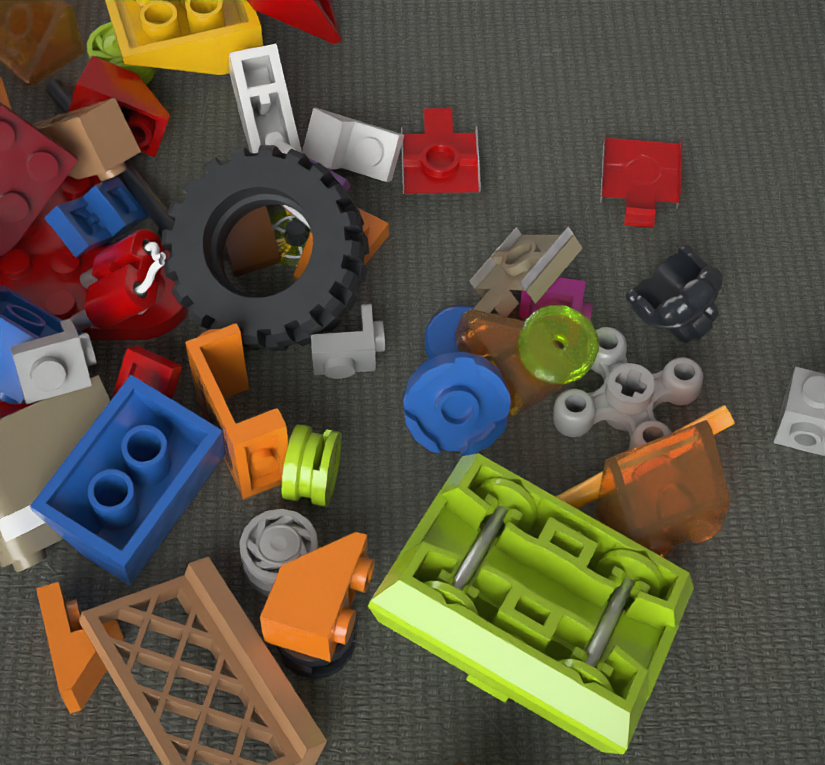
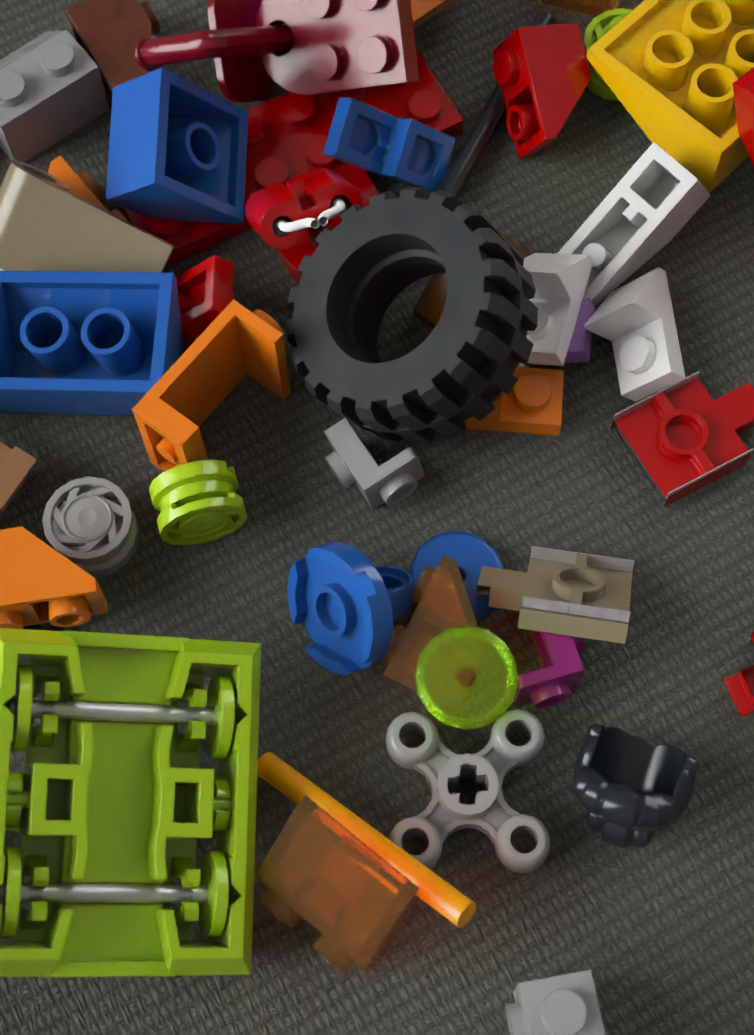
camera: 65 degrees right, 10 degrees up
(54, 363) = (146, 200): light grey bracket -> none
(96, 136) = (460, 76): medium nougat slope -> none

